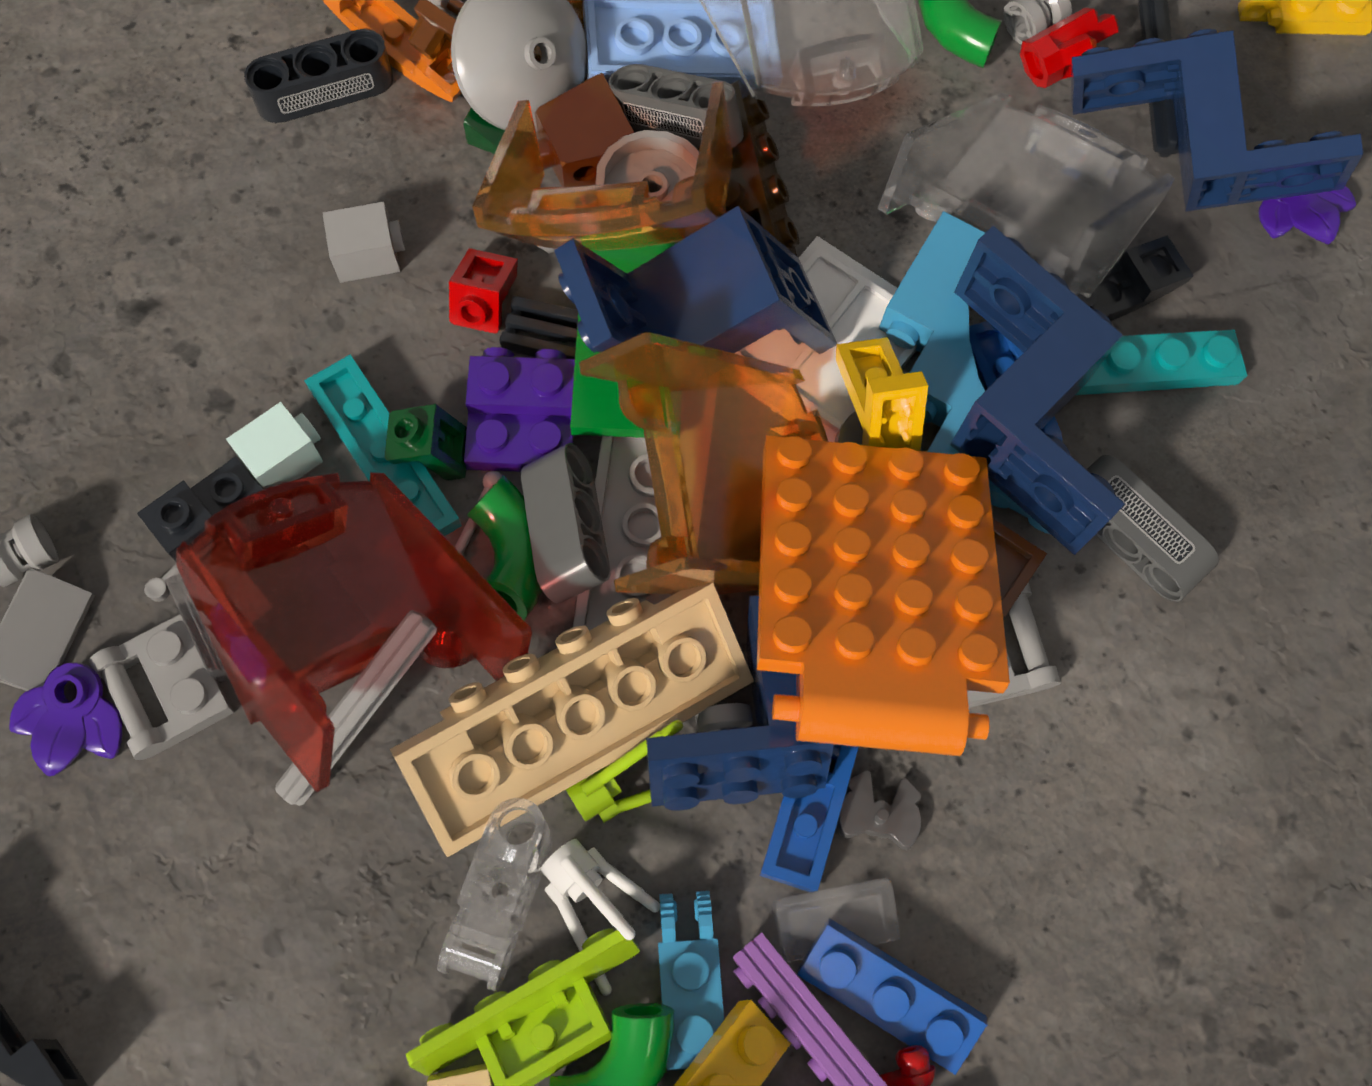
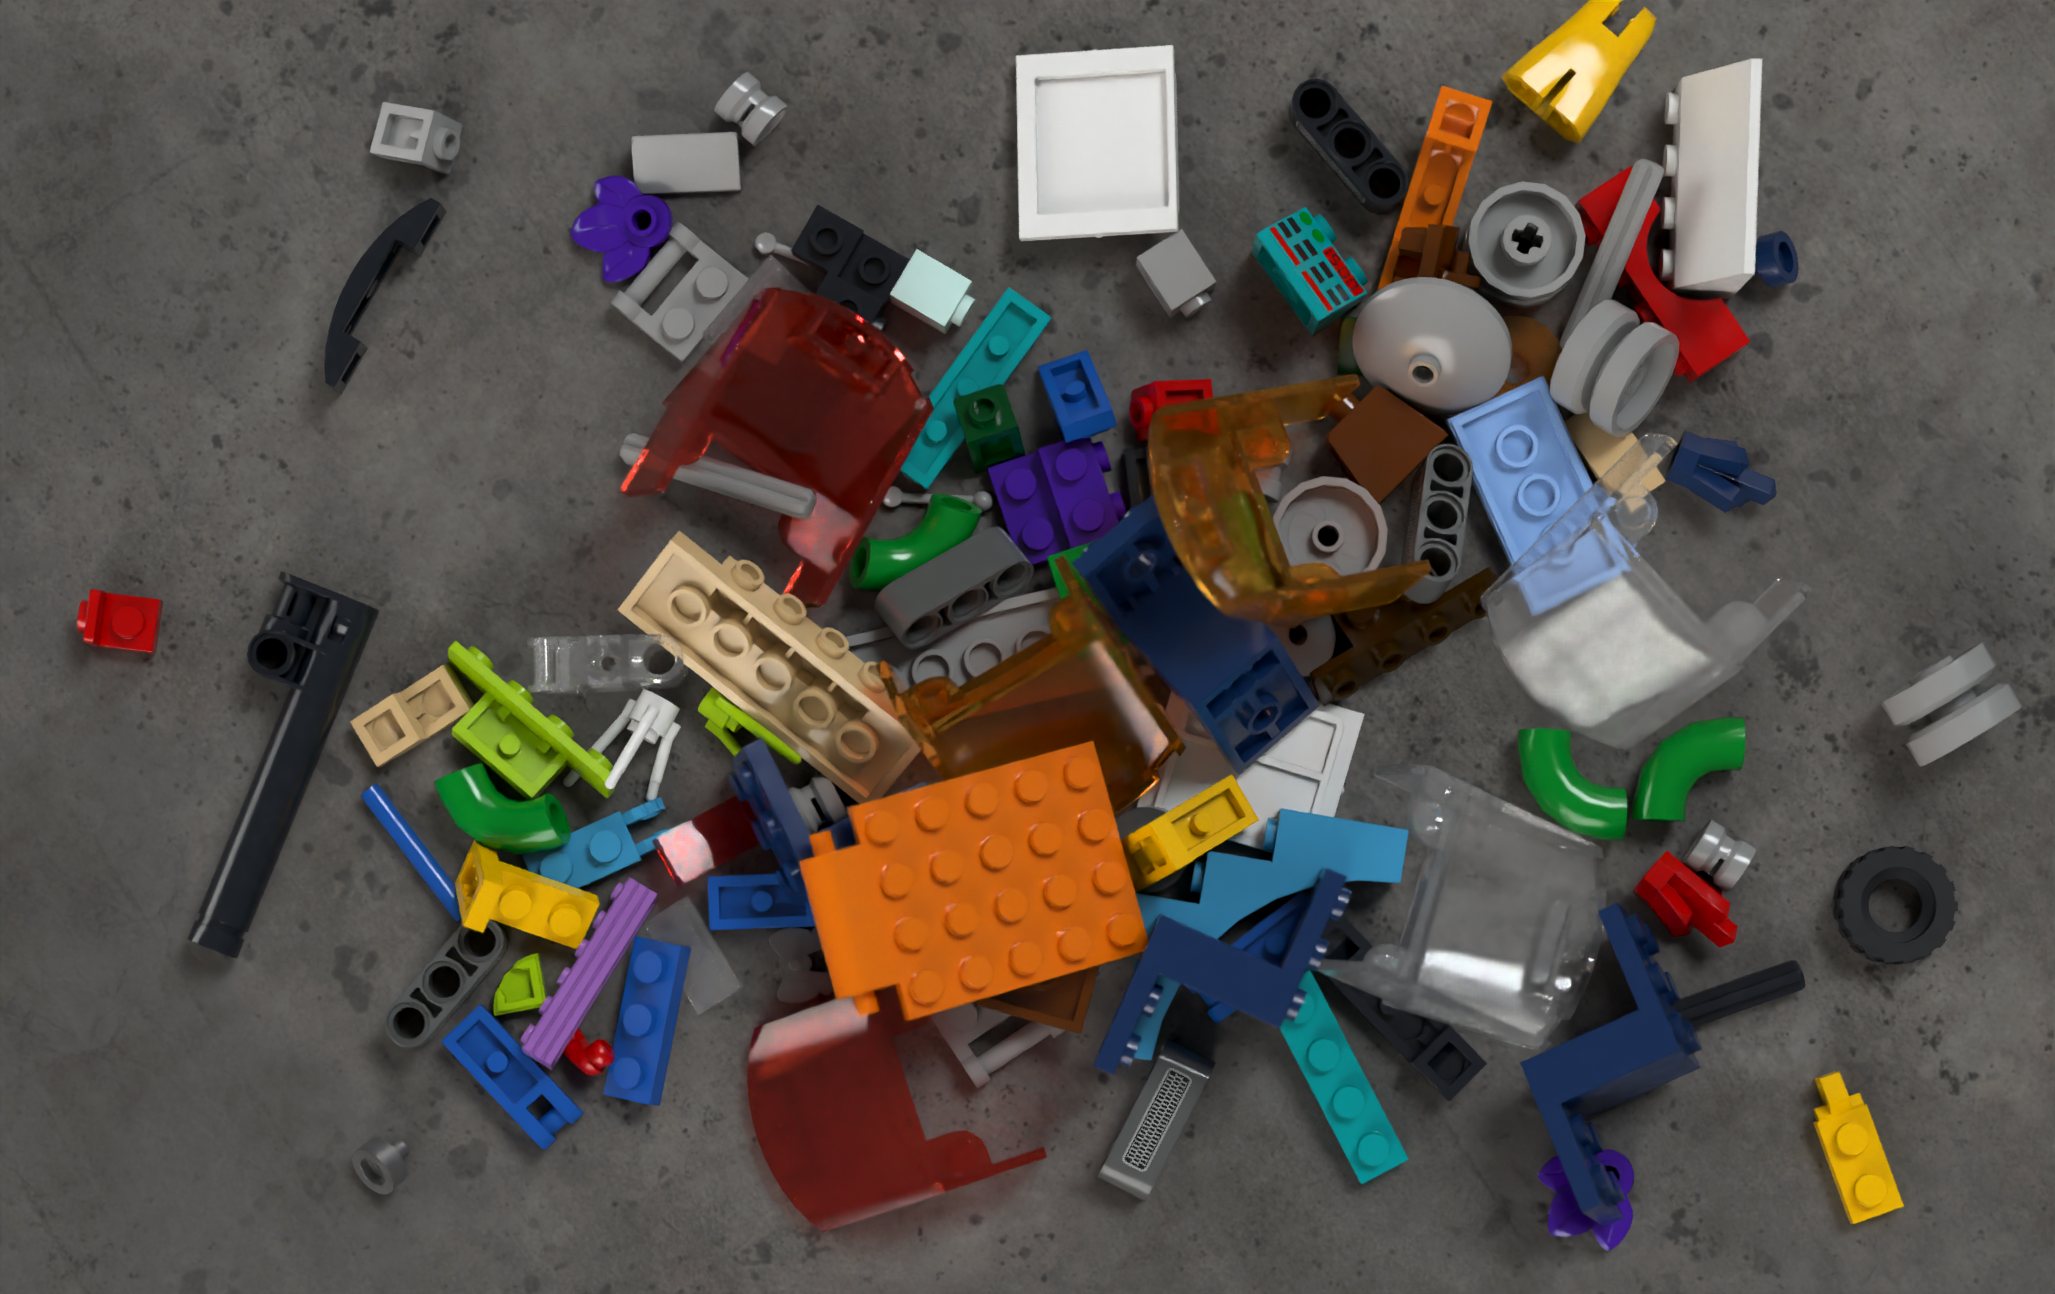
camera: 70 degrees right, 15 degrees up
(212, 262) = (1097, 143): none -> white piece
(411, 140) = (1309, 269): none -> teal slope
(435, 359) = (1076, 397): none -> blue slope
(724, 858) = (707, 840): none -> clear red tile
(916, 103) = (1564, 792): none -> green cylinder
(1063, 816) = (843, 1119): none -> clear red windscreen

